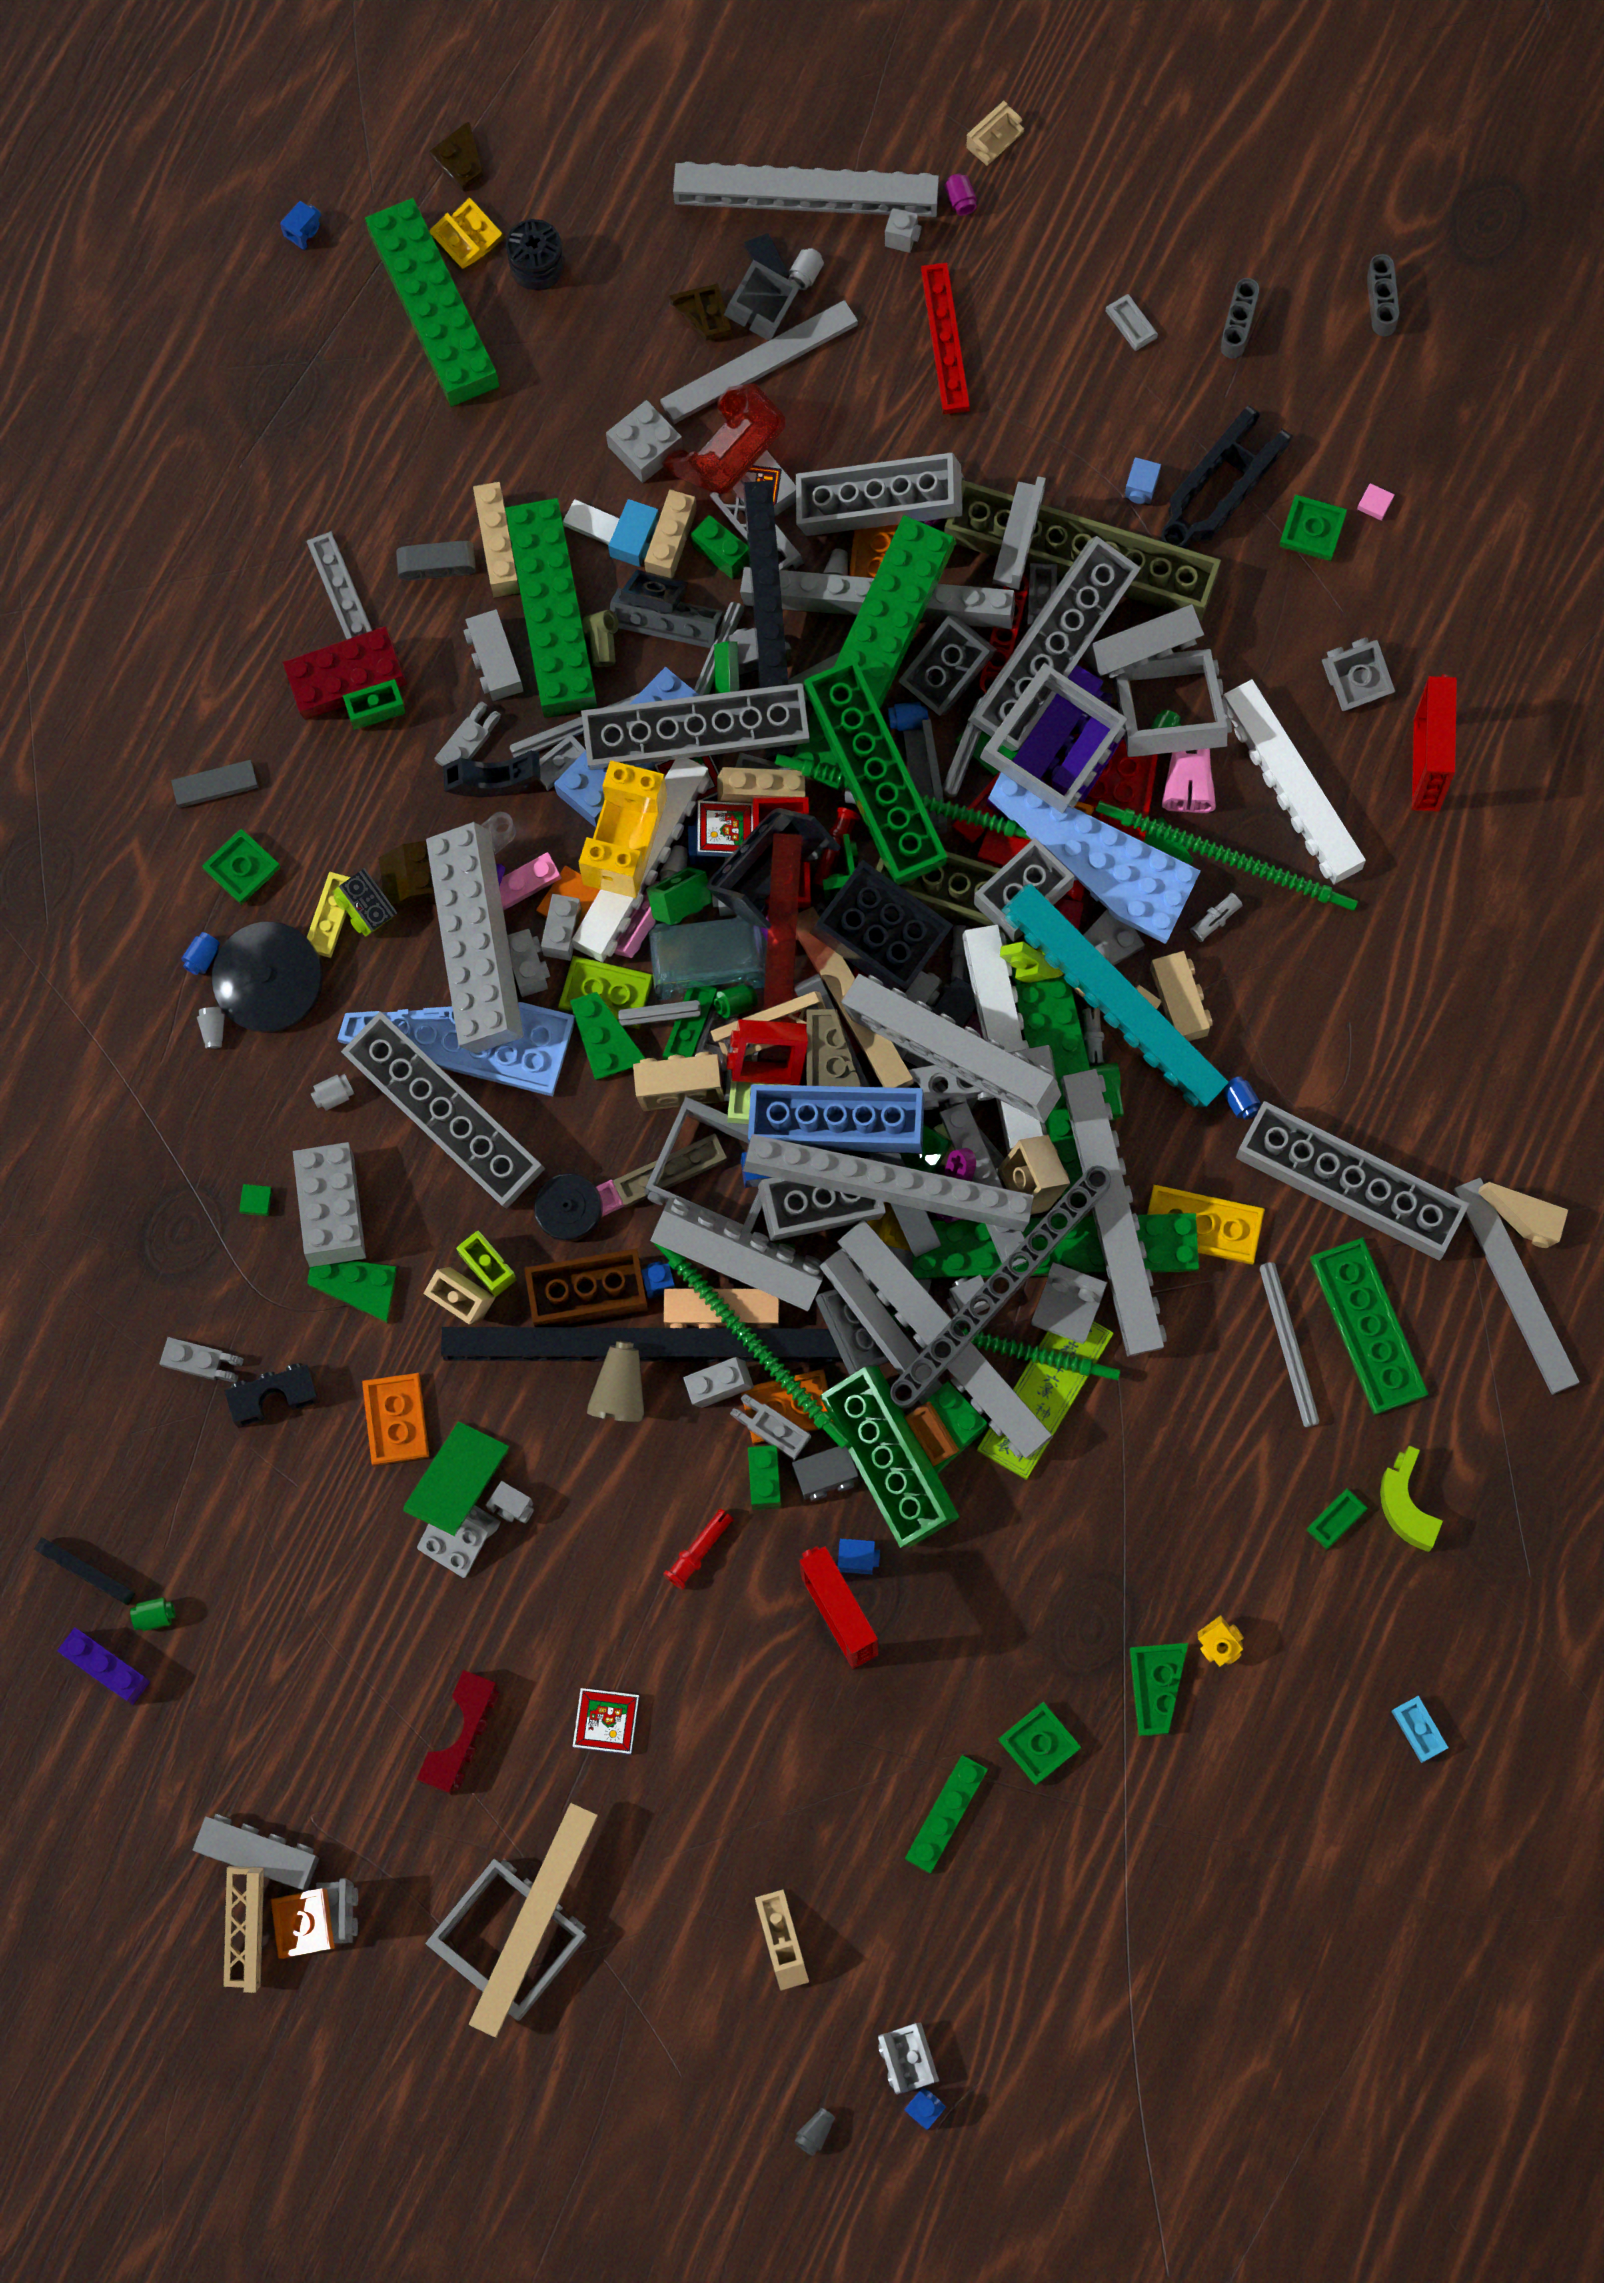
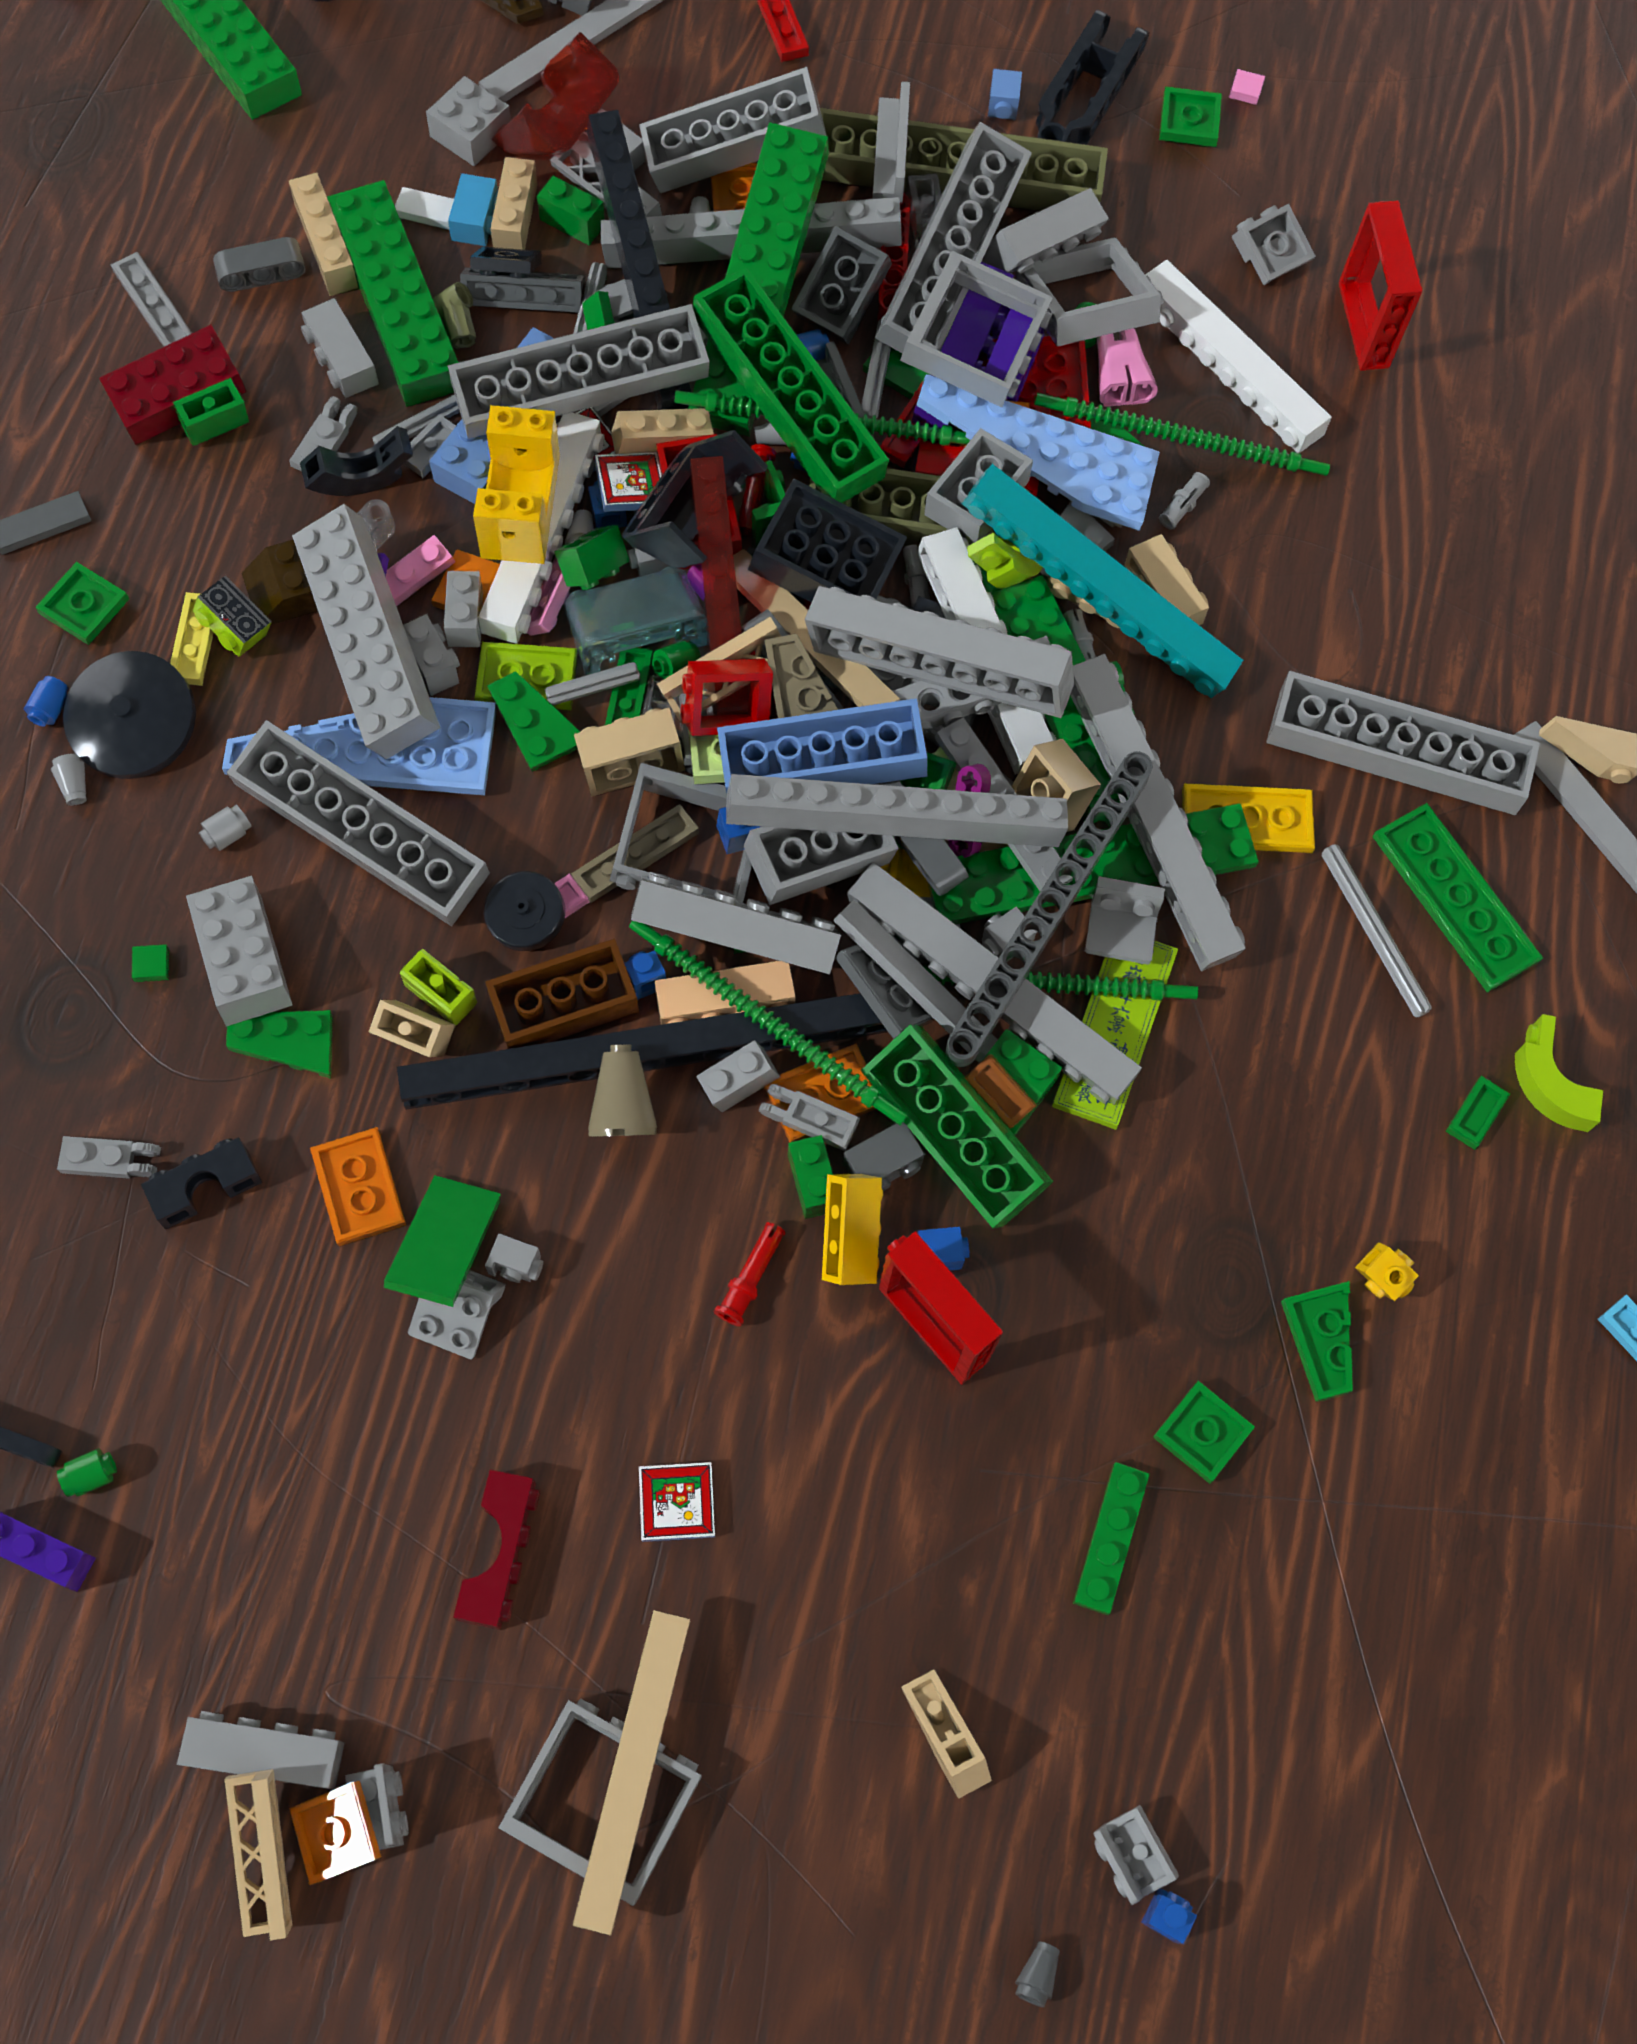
camera: 20 degrees left, 5 degrees down
(785, 1528) = (852, 1229): none -> yellow brick
(1241, 1098) = (1258, 678): blue brick -> none

